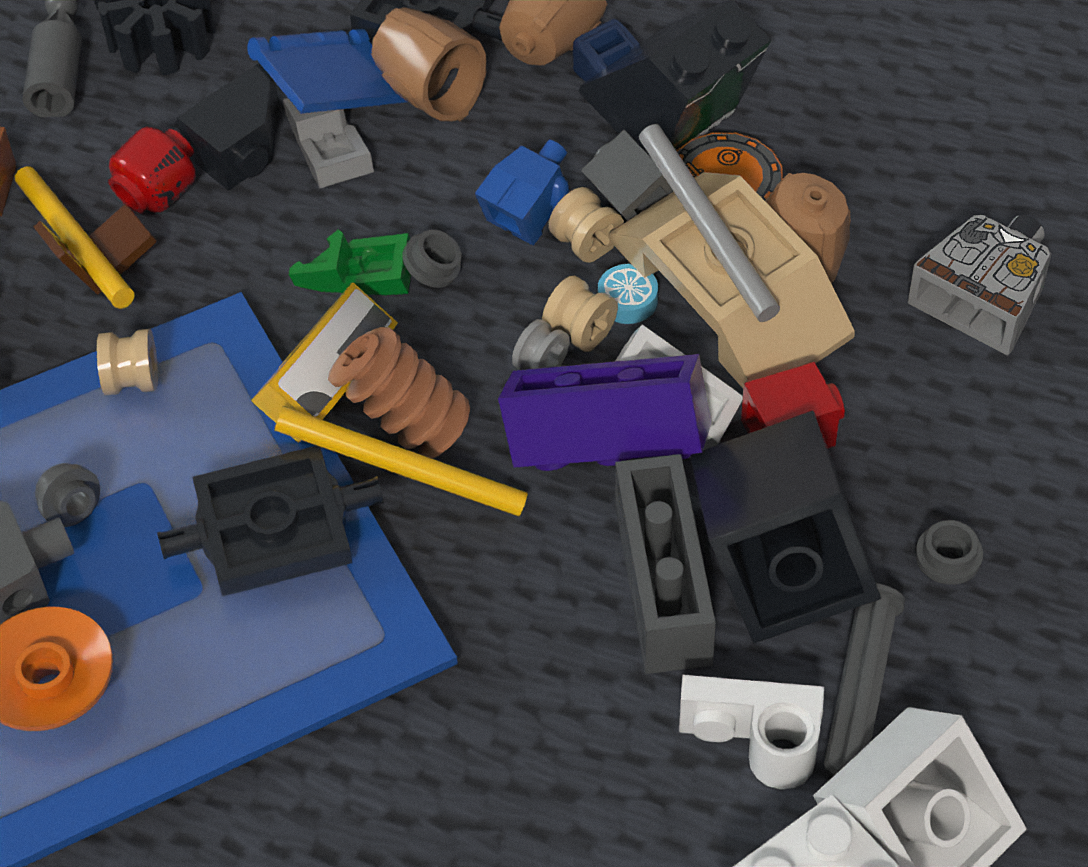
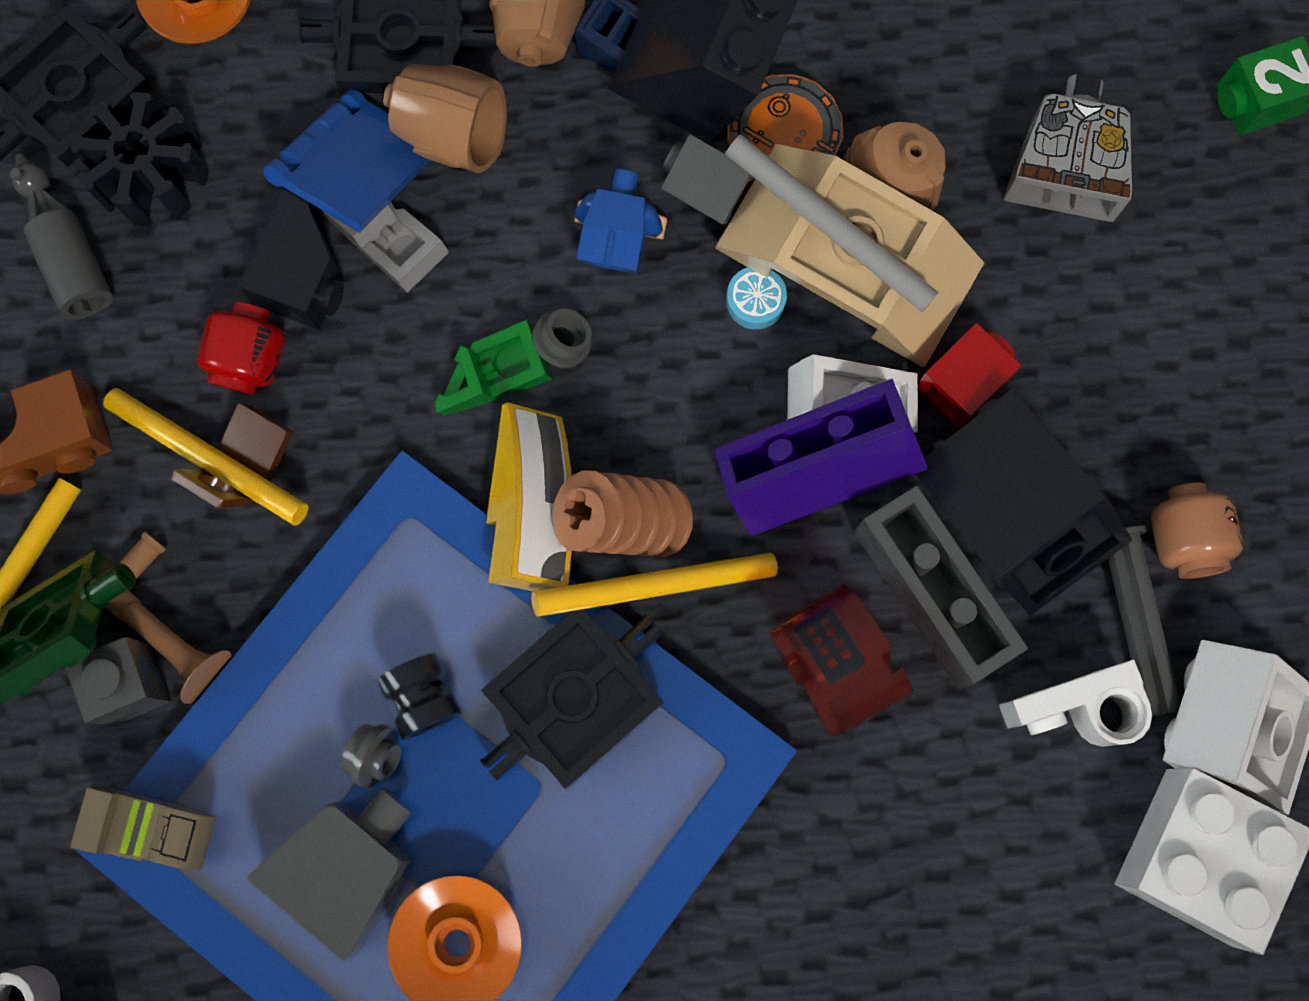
camera: 25 degrees left, 25 degrees up
(127, 362) = (347, 589): tan wheel -> none
(136, 464) = (419, 696): none -> black wheel
(531, 579) = (842, 659): none -> clear red brick
(540, 347) = (713, 399): light grey bush -> none
(580, 313) = (729, 344): tan wheel -> none
(584, 224) = (686, 241): tan wheel -> none
(951, 617) = (1196, 531): none -> nougat head
(954, 538) = (1172, 450): dark grey plate -> none

